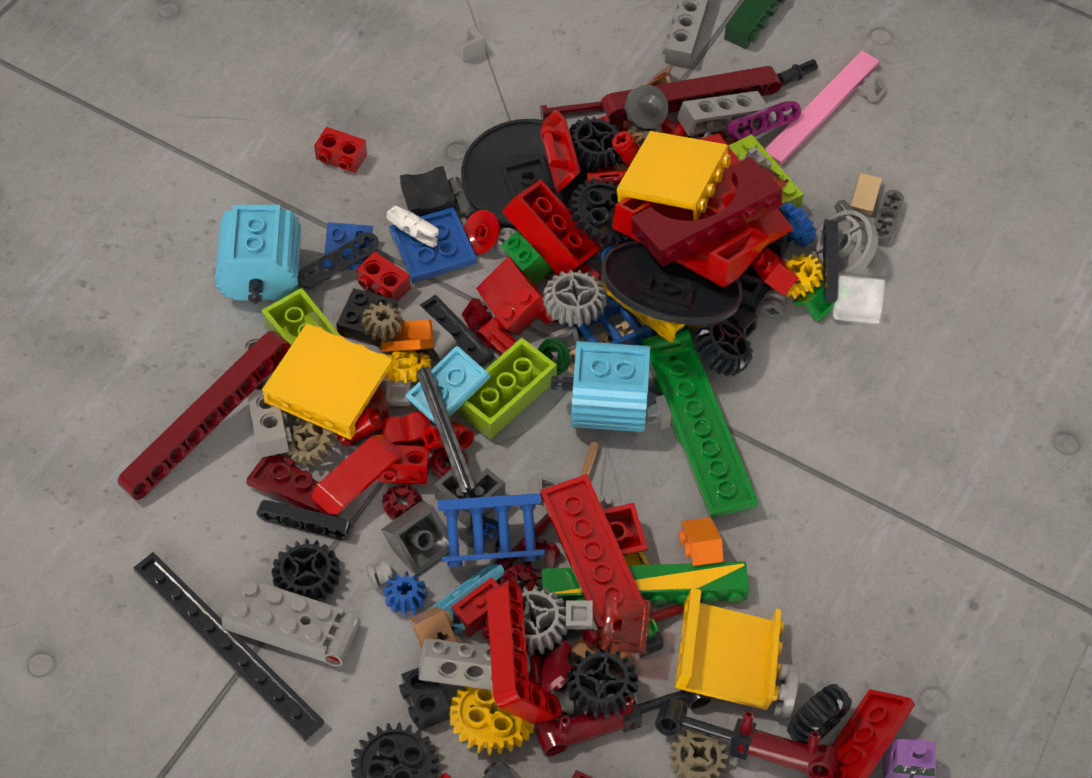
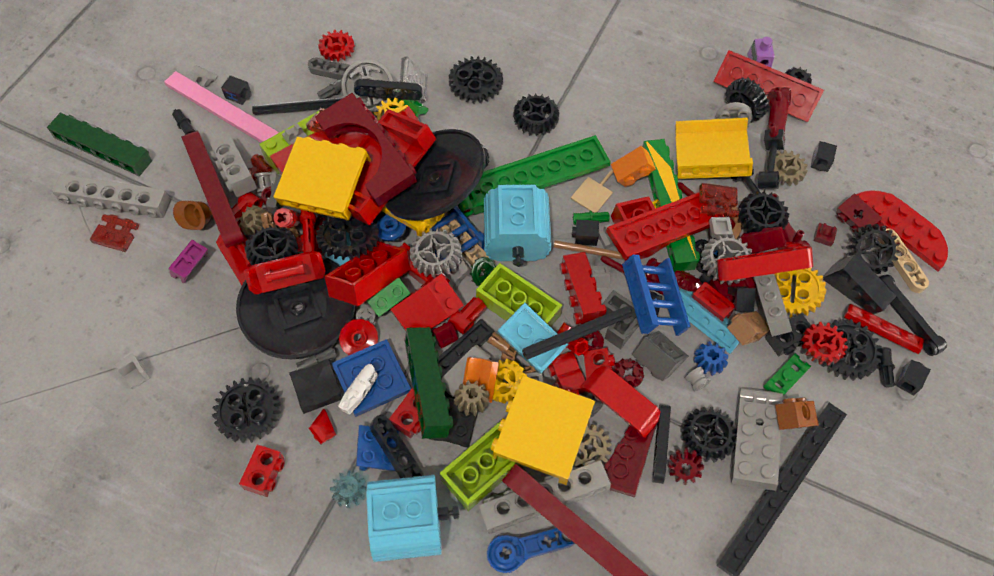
camera: 95 degrees left, 5 degrees up
(211, 366) = (522, 549): none -> blue beam
(269, 535) = (686, 474): none -> dark red gear
(301, 676) = (796, 413): none -> dark orange brick
(311, 219) = (342, 484): none -> clear light blue gear
(369, 683) = (787, 376): none -> green plate
(379, 200) = (322, 428): none -> red piece
(386, 725) = (826, 343): none -> red gear
(409, 282) = (427, 383): none -> dark green brick
(410, 136) = (229, 413): none -> black gear
(473, 631) = (743, 298): none -> black panel
(518, 457) = (581, 288): none -> red wedge
(570, 109) = (219, 301): dark red bar -> none
(596, 78) = (187, 260): none -> magenta hinge
(605, 477) = (586, 232): none -> black brick
(630, 485) = (597, 216): none -> green axle
(639, 18) = (112, 237): none -> clear red plate
(646, 107) = (237, 207): dark grey tile -> none
(670, 500) = (592, 194): none -> tan piece
(764, 120) = (242, 138): magenta beam -> none
(802, 449) = (535, 119): none -> black gear
(822, 176) = (294, 106): none -> black axle
(847, 118) = (236, 90): none -> black brick
(866, 194) = (308, 81): tan tile -> none
(867, 375) = (475, 79): none -> black gear
(927, 220) = (336, 45): none -> red gear

